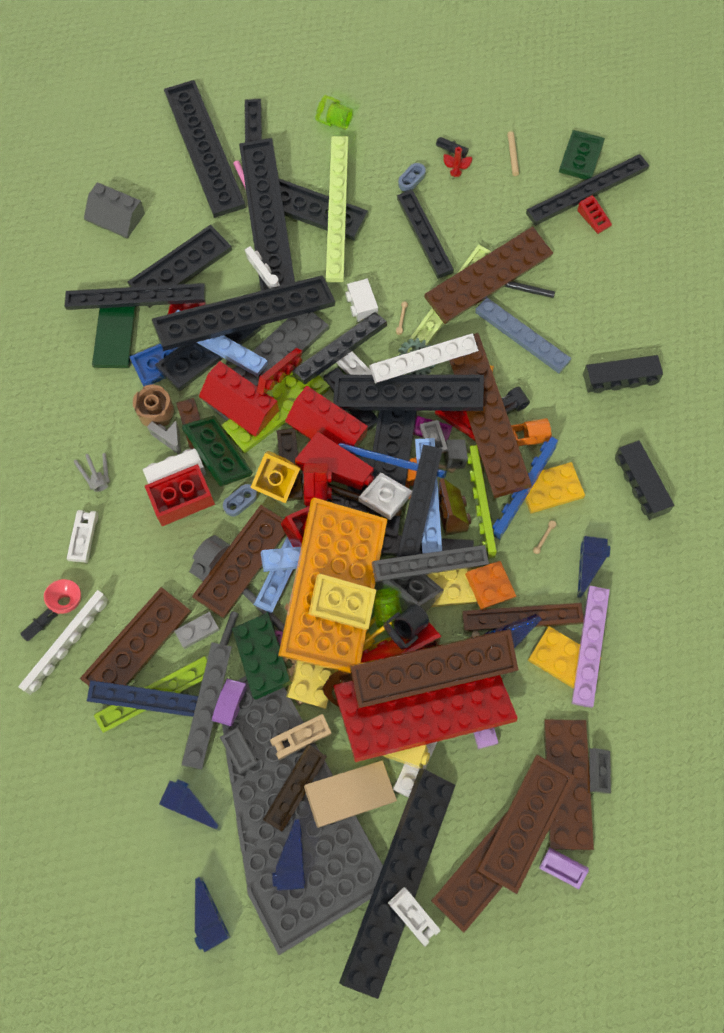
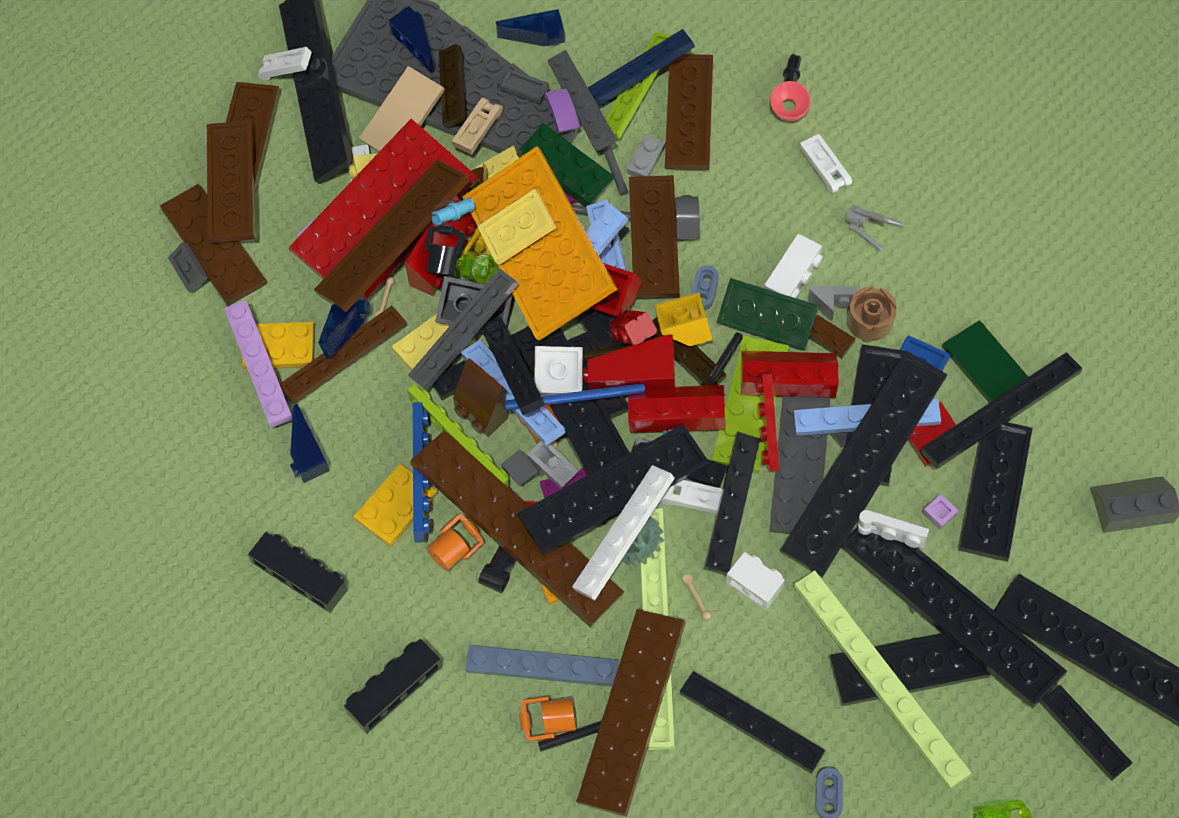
camera: 145 degrees right, 5 degrees down
(62, 644) = (753, 99): white plate -> none
(179, 495) = (763, 246): red slope -> none
(223, 273) = (940, 511): none -> lavender plate
(268, 440) = (724, 358): none -> black bar
(377, 653) = (453, 211): none -> medium azure pin
(490, 585) = (393, 361): orange plate -> none
(535, 297) = (557, 717): none -> orange piece
(552, 524) = (370, 468): tan hinge -> none
(564, 868) = (178, 177): tile -> none

